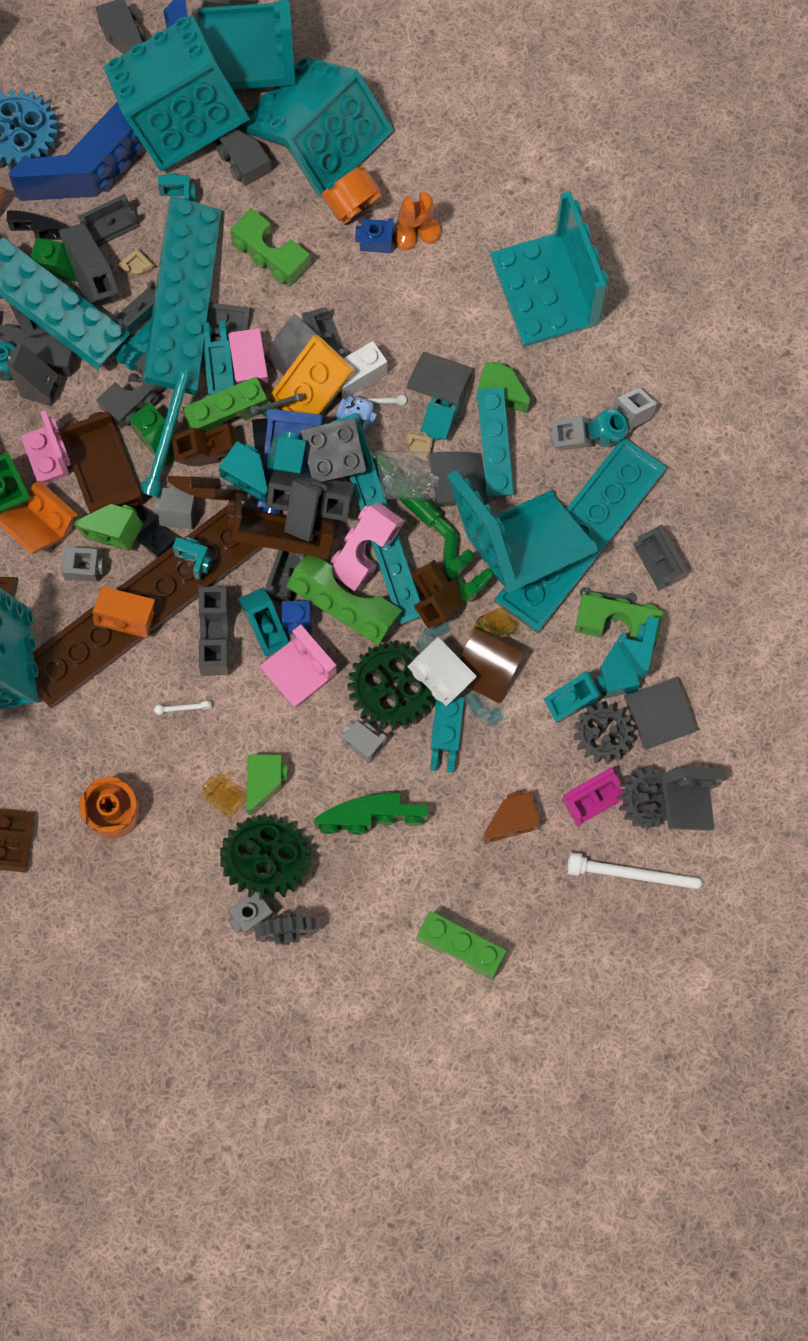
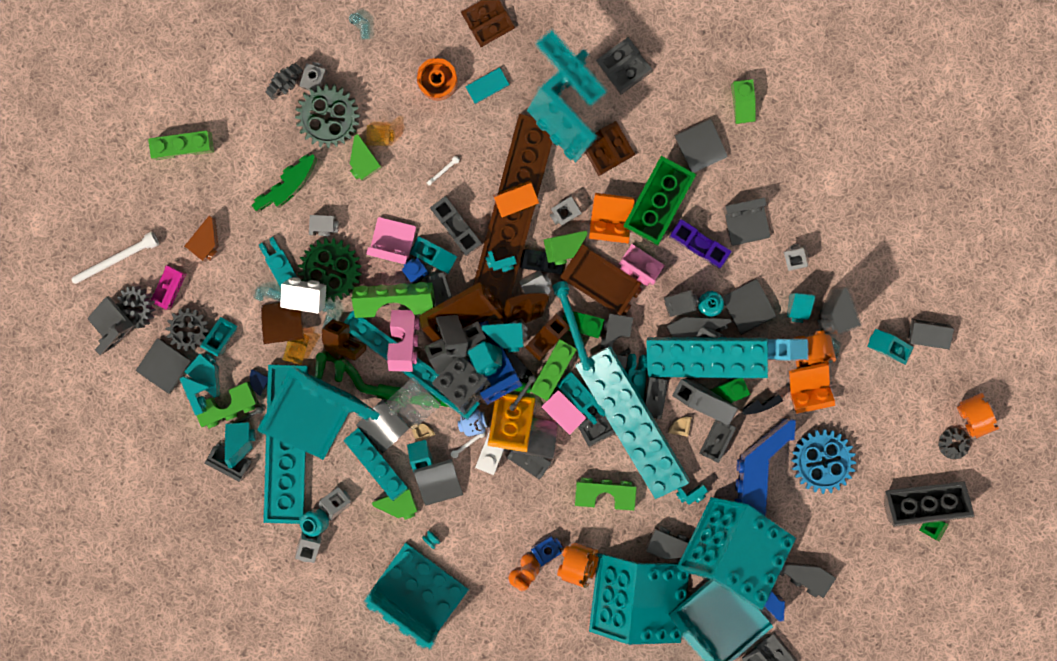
camera: 145 degrees right, 15 degrees up
(60, 765) = (487, 85): none -> teal tile
(147, 937) = (361, 23): none -> clear light blue arm
(492, 328) = (431, 539): none -> teal bush
(563, 623) = (258, 381): none -> dark blue tile
(632, 569) = (238, 442): none -> teal slope

